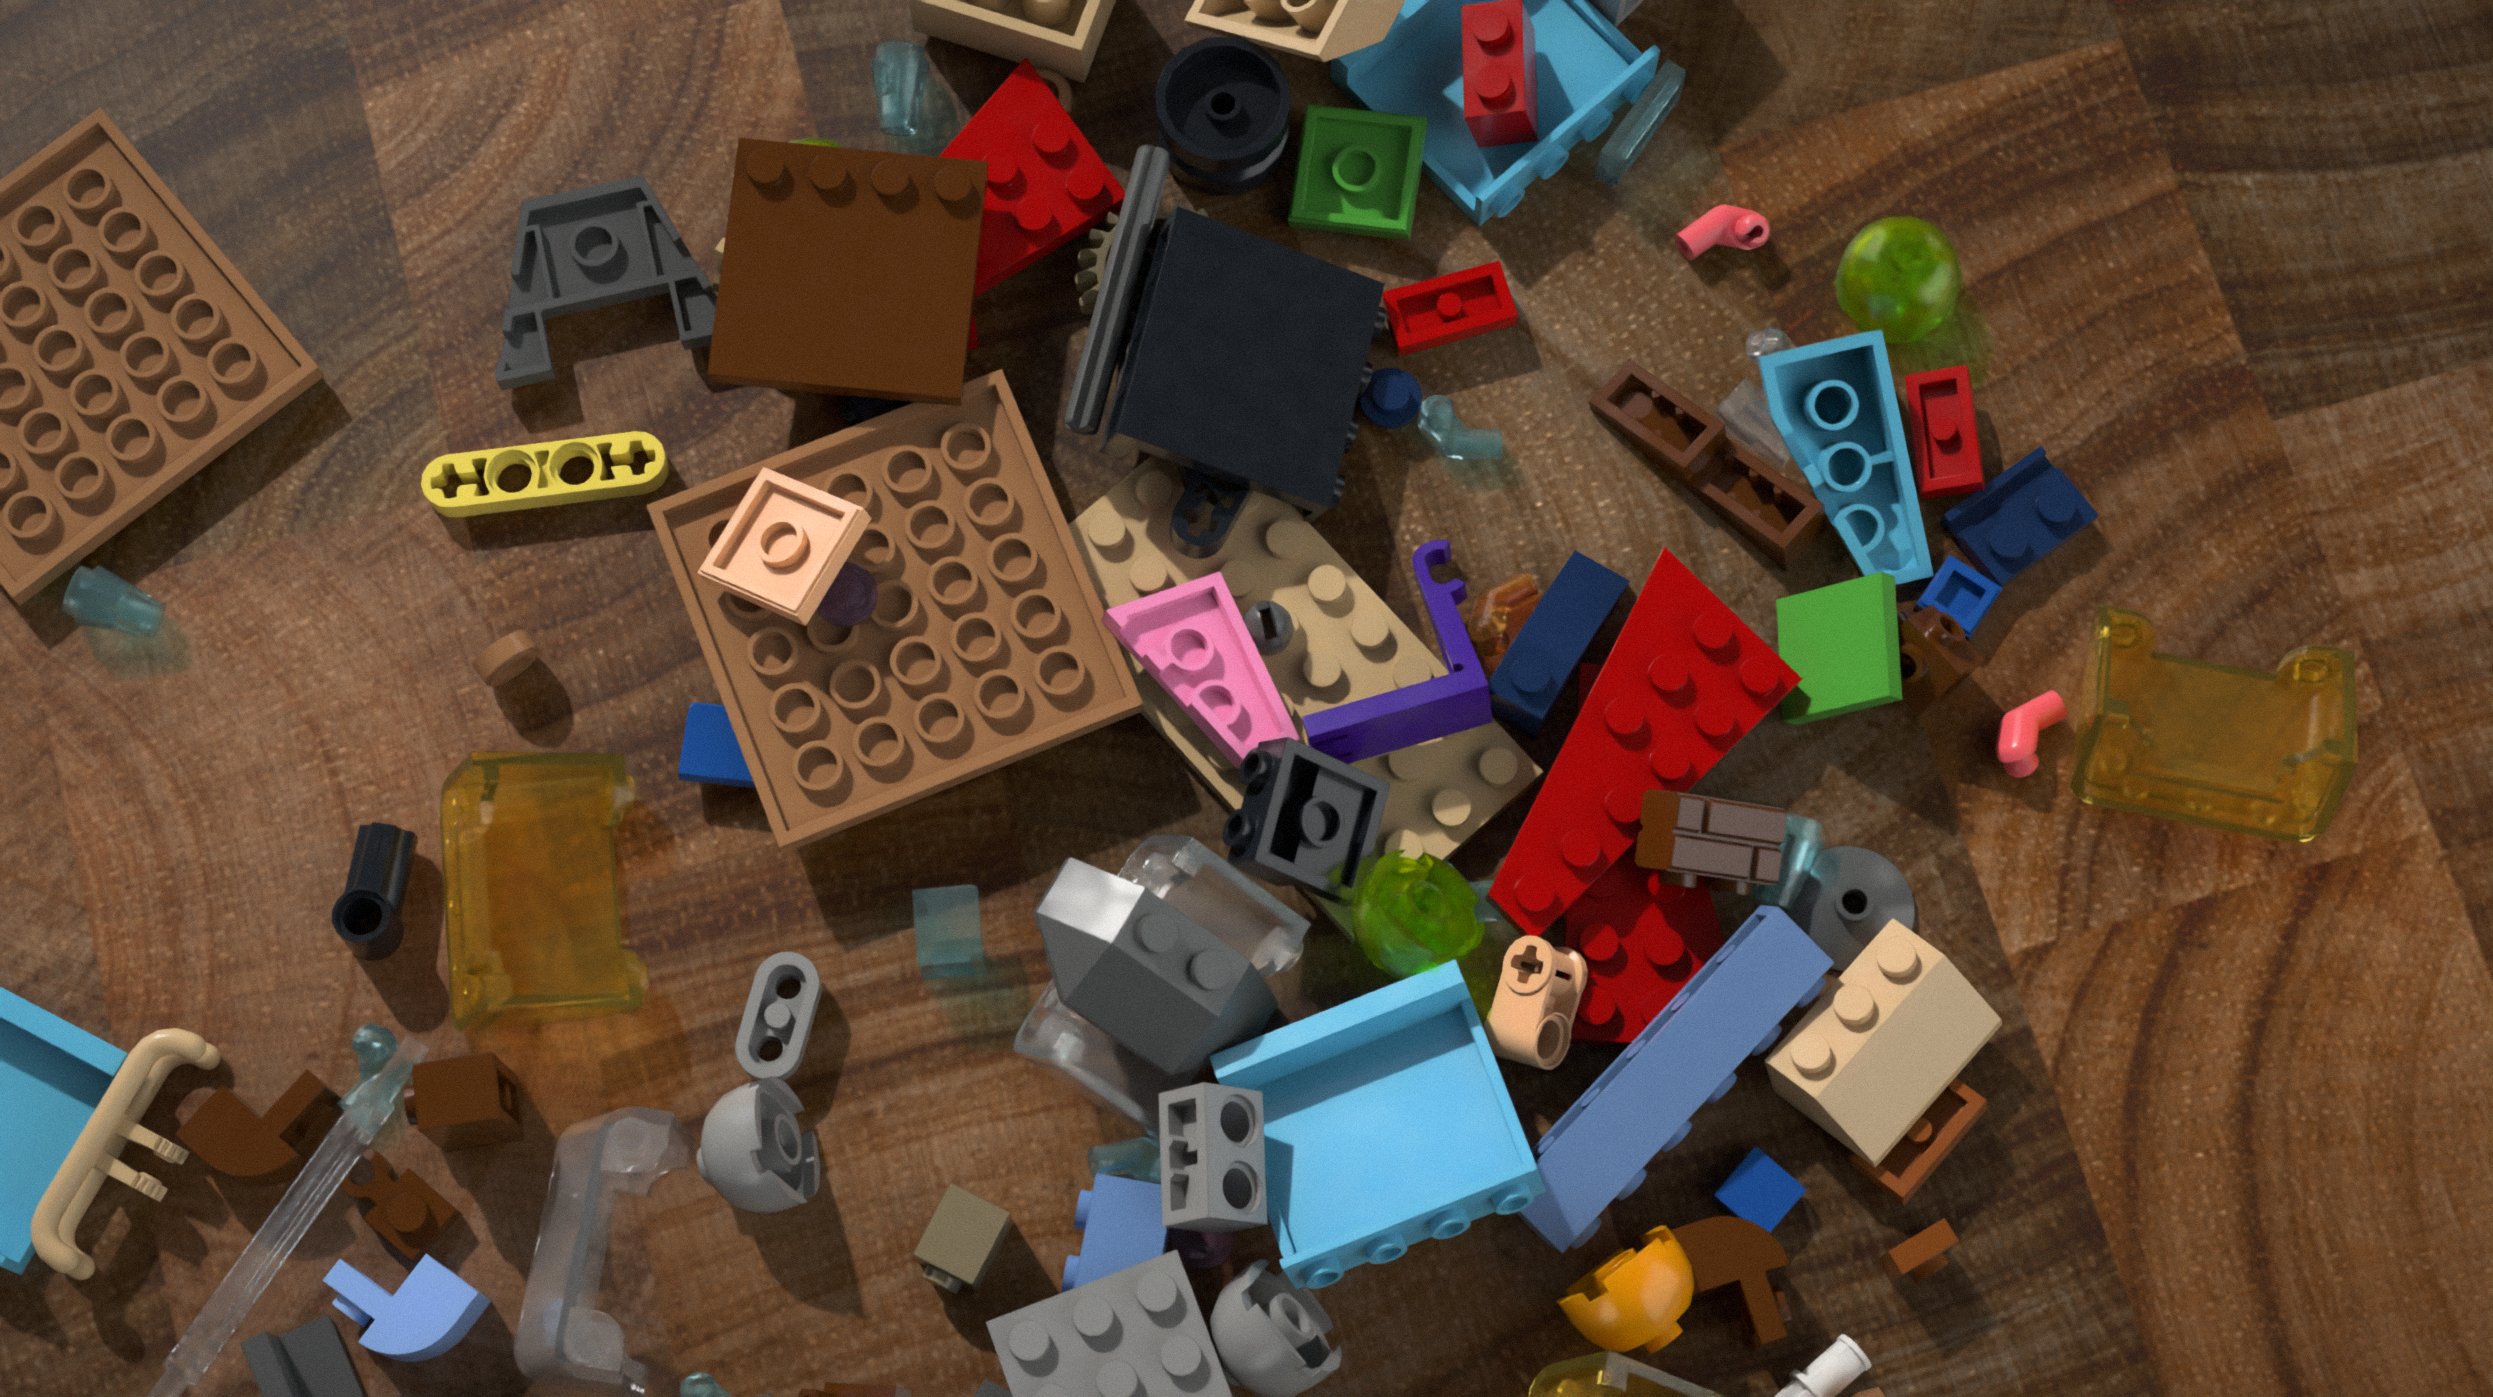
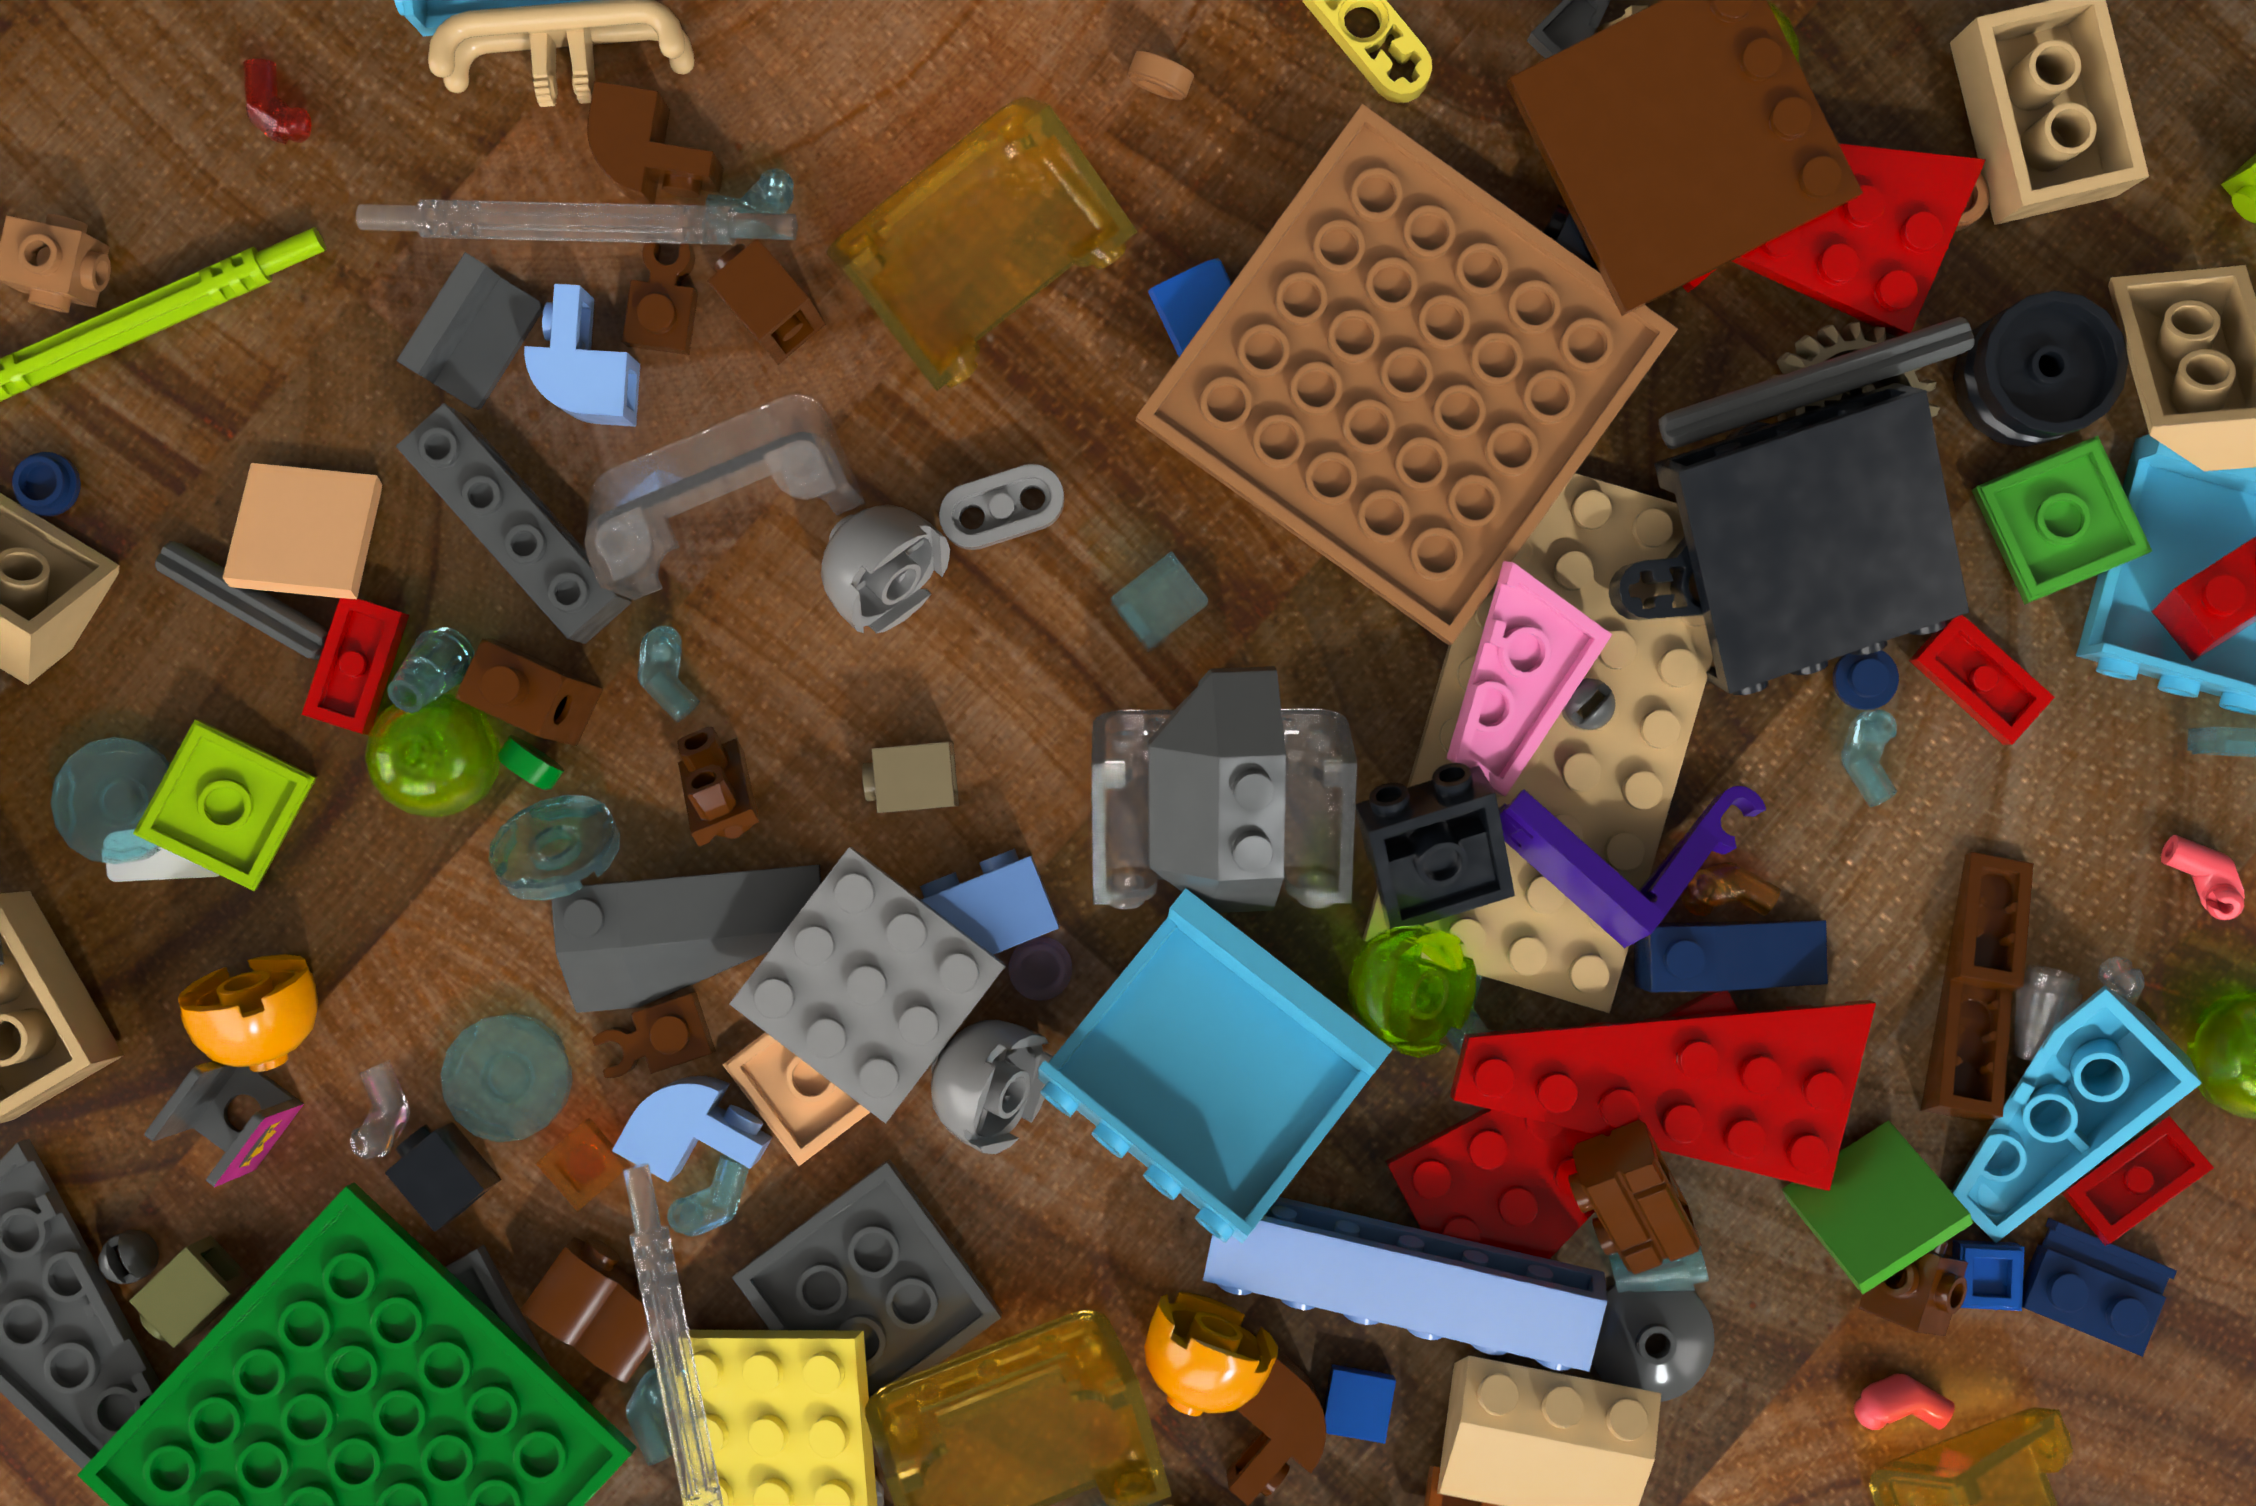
camera: 60 degrees right, 15 degrees up
(376, 885) = (905, 99): black piece -> none
(784, 546) = (1397, 248): light nougat tile -> none
(850, 597) = (1387, 328): plate -> none
(899, 86) = (1888, 64): clear light blue cone -> none
(1132, 1157) = (1070, 880): clear light blue arm -> none
(1212, 1158) = (1097, 948): light grey brick -> none
(1535, 1008) = (1396, 1131): light nougat piece -> none

